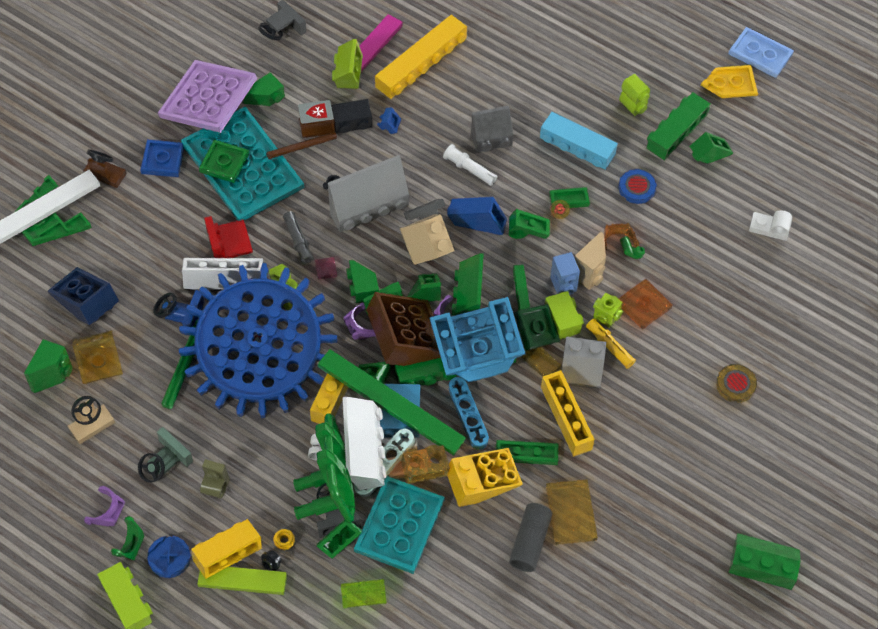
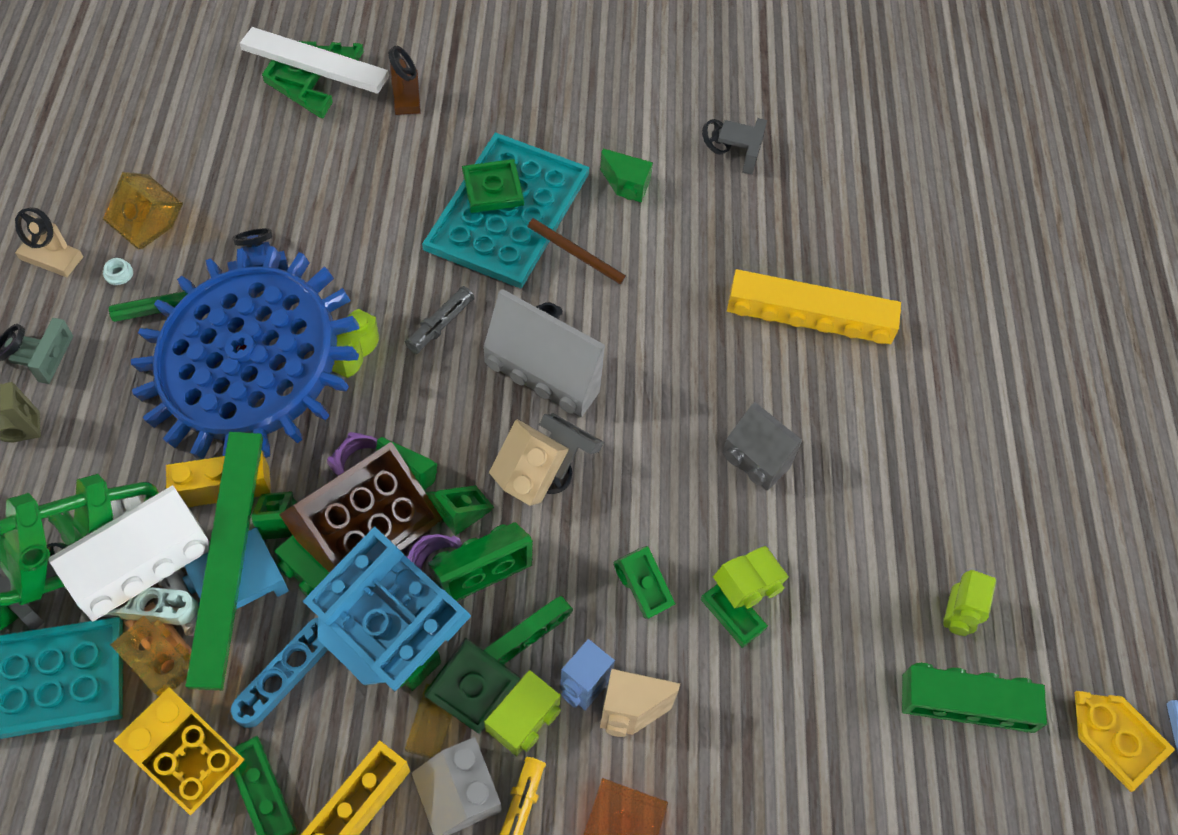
camera: 55 degrees right, 0 degrees up
(48, 366) = (90, 165): green slope -> none
(84, 295) = (218, 157): dark blue slope -> none
(136, 385) = (117, 271): none -> light aqua plate
(162, 158) = (462, 132): blue tile -> none
(205, 271) = (315, 241): white brick -> none
(207, 96) = (573, 124): lavender plate -> none
(228, 239) = (385, 246): red bracket -> none
(316, 118) = (627, 246): piece -> none
(326, 268) = (417, 374): clear pink tile -> none
(348, 65) = (728, 235): lime slope -> none
(352, 116) = (661, 280): black brick -> none
(363, 281) = (415, 424): green slope -> none
(379, 38) = (793, 249): dark pink tile -> none
(390, 121) = (687, 325): blue tile -> none
(463, 161) = (690, 441): white pin -> none
(477, 214) = (614, 506): blue slope -> none
(559, 177) = (751, 578): none -> lime brick
(559, 209) = (702, 609): clear yellow tile -> none
(578, 140) = (835, 571): medium azure brick -> none
(607, 309) = (570, 786): lime brick -> none
(625, 229) = (724, 704): clear orange helmet -> none
(636, 253) = (703, 750): green arm -> none
(637, 186) = (824, 697): tile -> none
(710, 148) = (972, 772): green slope -> none

